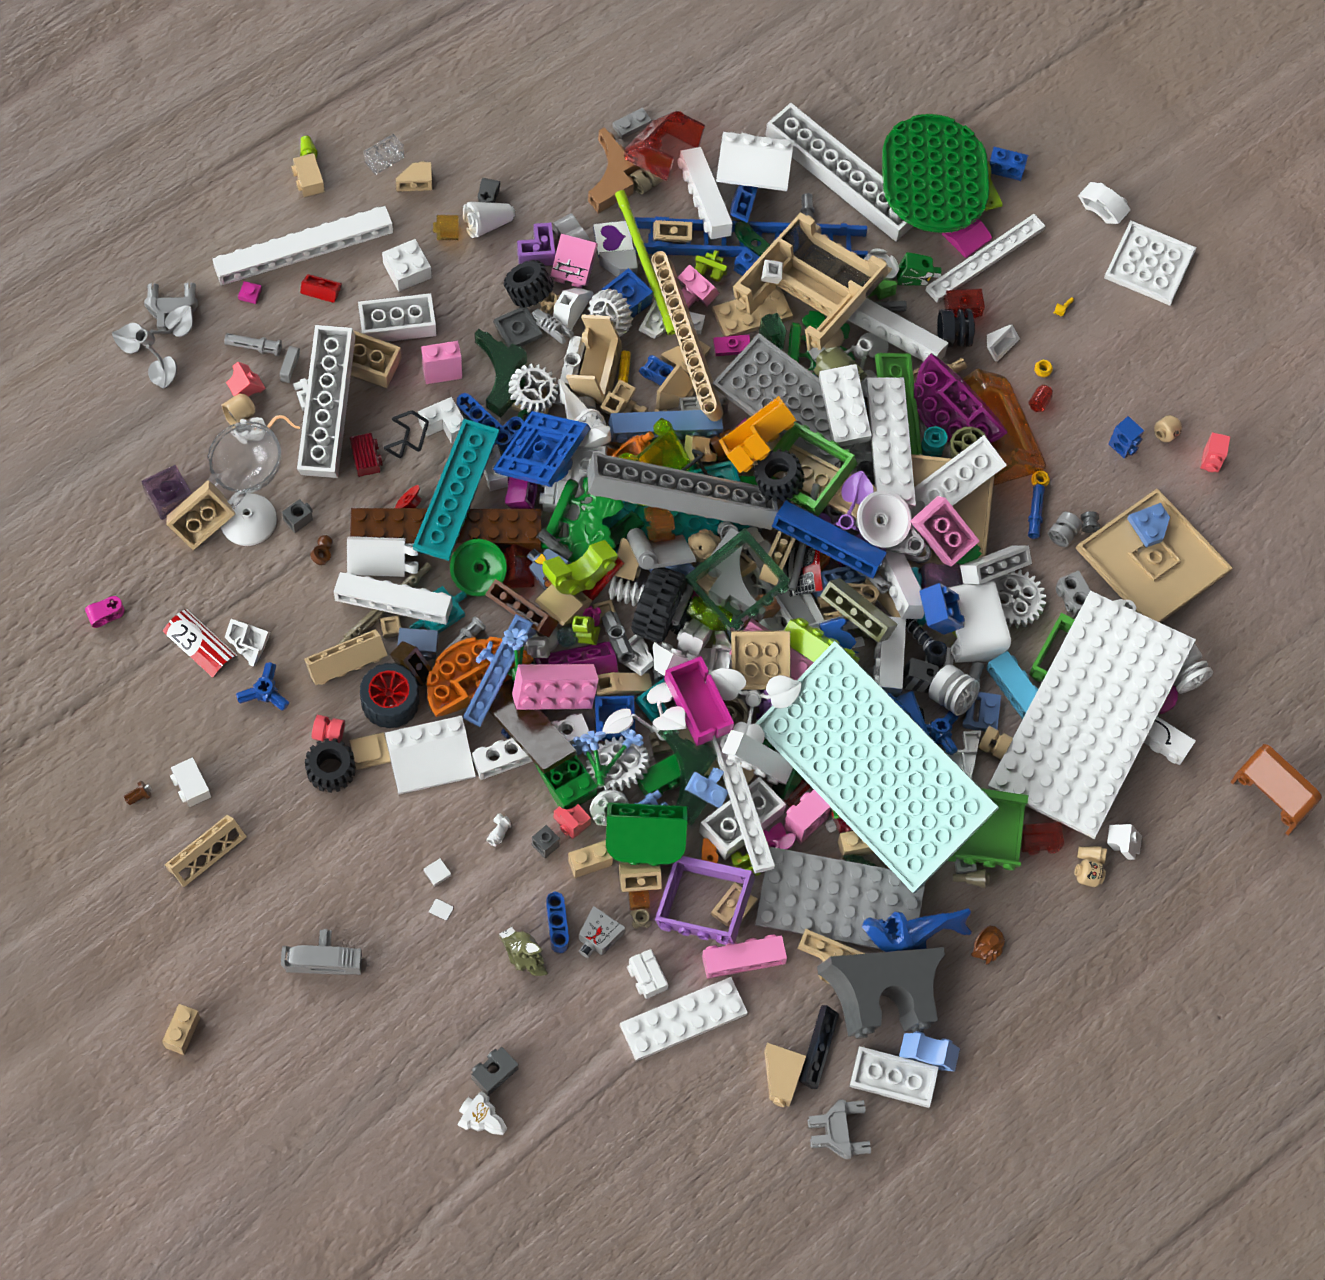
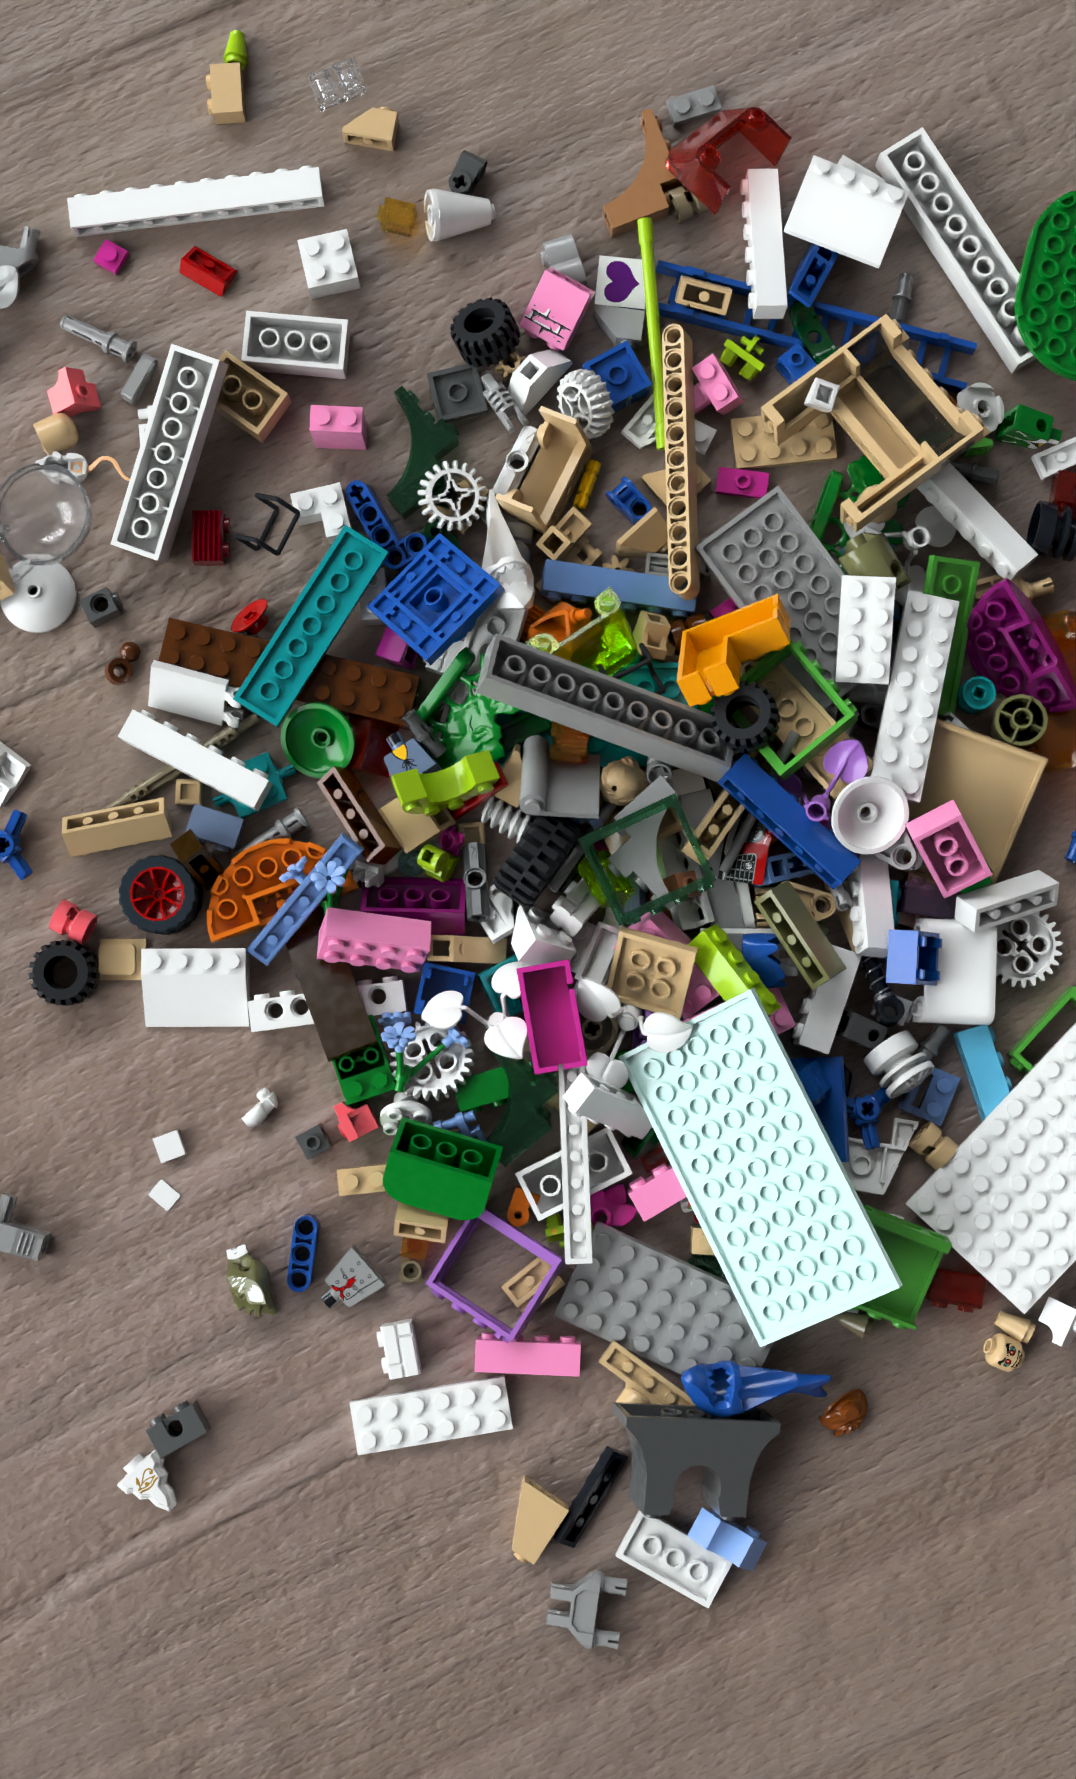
camera: 20 degrees right, 20 degrees up
(539, 248) = (516, 282): medium lavender brick -> none
(707, 788) = (537, 1130): light blue plate -> none
(773, 329) = (800, 480): clear green brick -> none
(959, 475) = (988, 770): white plate -> none

